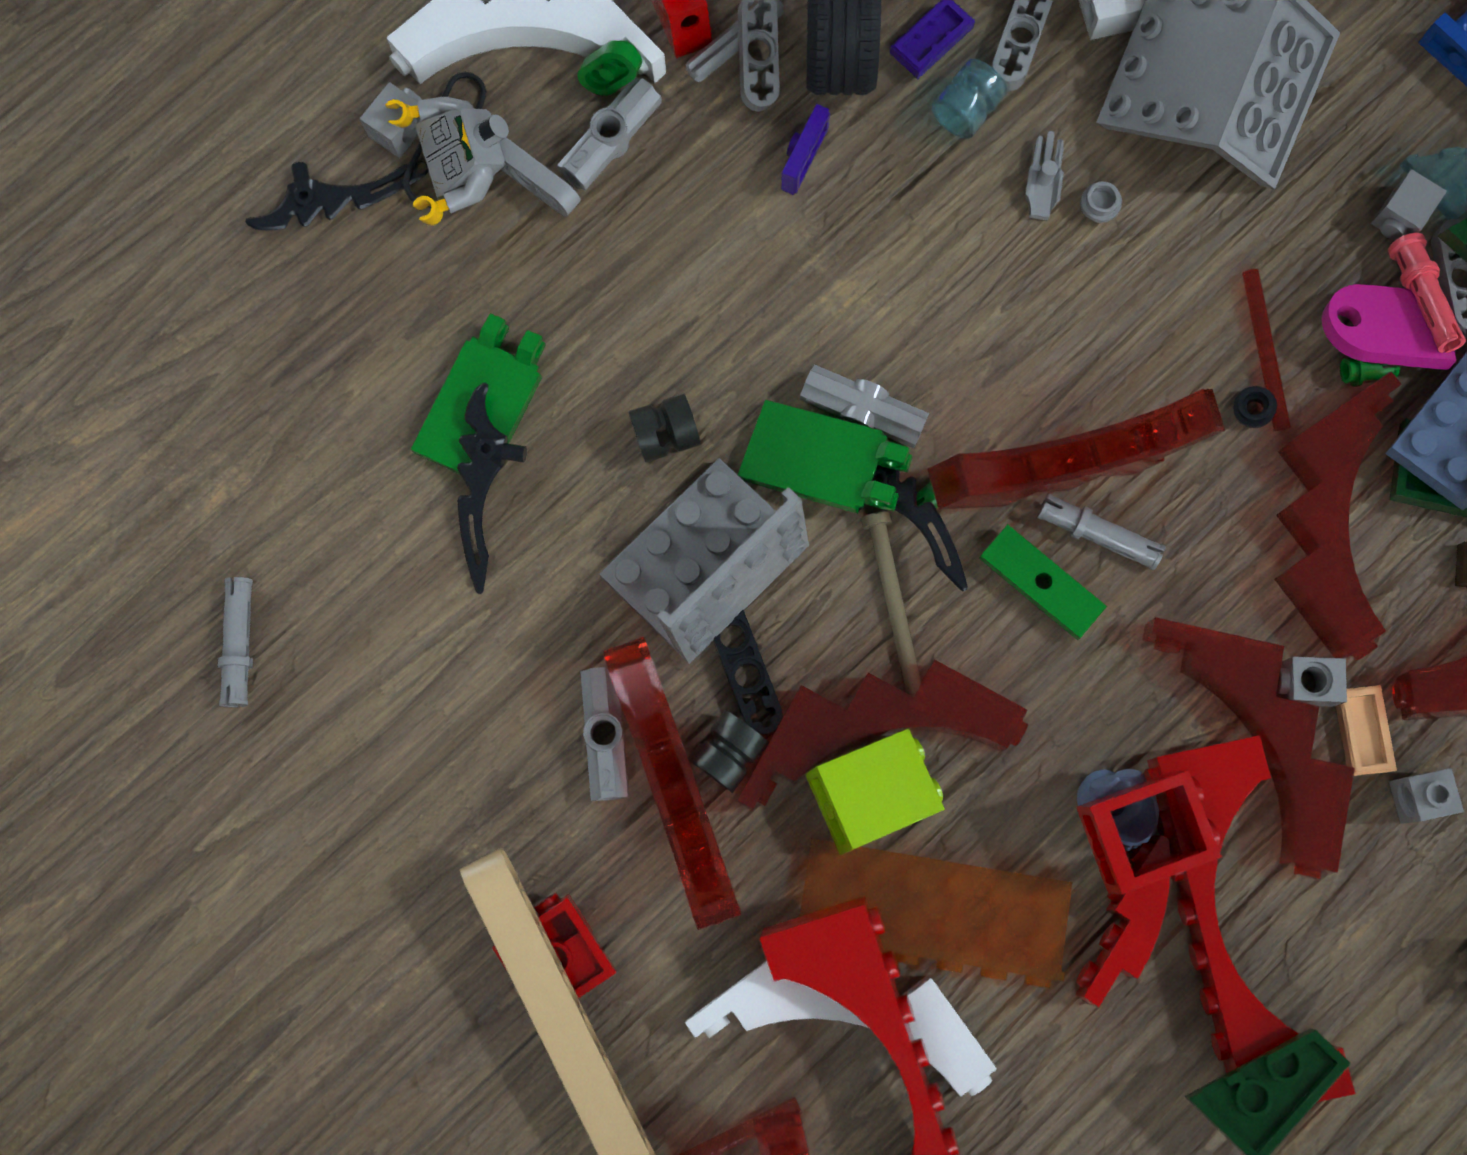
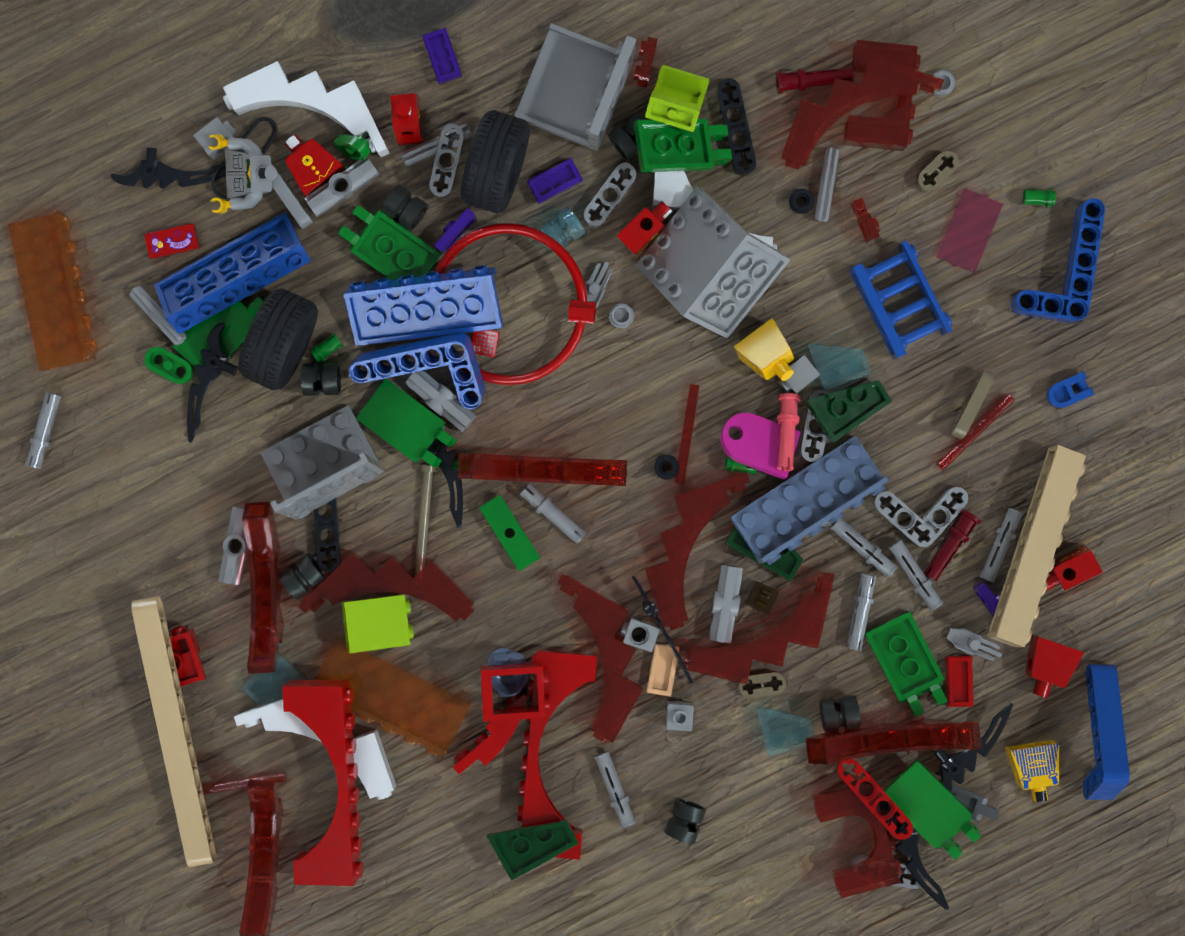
camera: 15 degrees right, 10 degrees up
(199, 422) = (53, 291): none -> clear orange bracket
(367, 292) = (172, 241): none -> red tile
(376, 407) = (156, 314): none -> light grey axle
(415, 481) = (169, 366): none -> green plate
(477, 307) = (231, 273): none -> blue bracket
(552, 114) = (310, 164): none -> red torso
(581, 372) = (277, 339): none -> black tyre
(657, 380) = (326, 348): none -> green pin
(711, 205) = (389, 246): none -> green tile
(716, 135) = (402, 206): none -> pearl dark grey wheel
(728, 948) = (268, 686): none -> clear light blue wing
(796, 265) = (423, 305): none -> bracket
(822, 348) = (424, 360): none -> blue beam
(903, 300) = (485, 342): none -> red slope
(1041, 203) = (580, 310): none -> red piece
(1097, 56) = (636, 236): none -> red torso
(1319, 634) = (651, 610): none -> black piece
(1350, 184) = (766, 352): none -> yellow torso
(1374, 970) = (625, 817): none -> light grey pin
(1429, 592) = (725, 604): none -> light grey piece

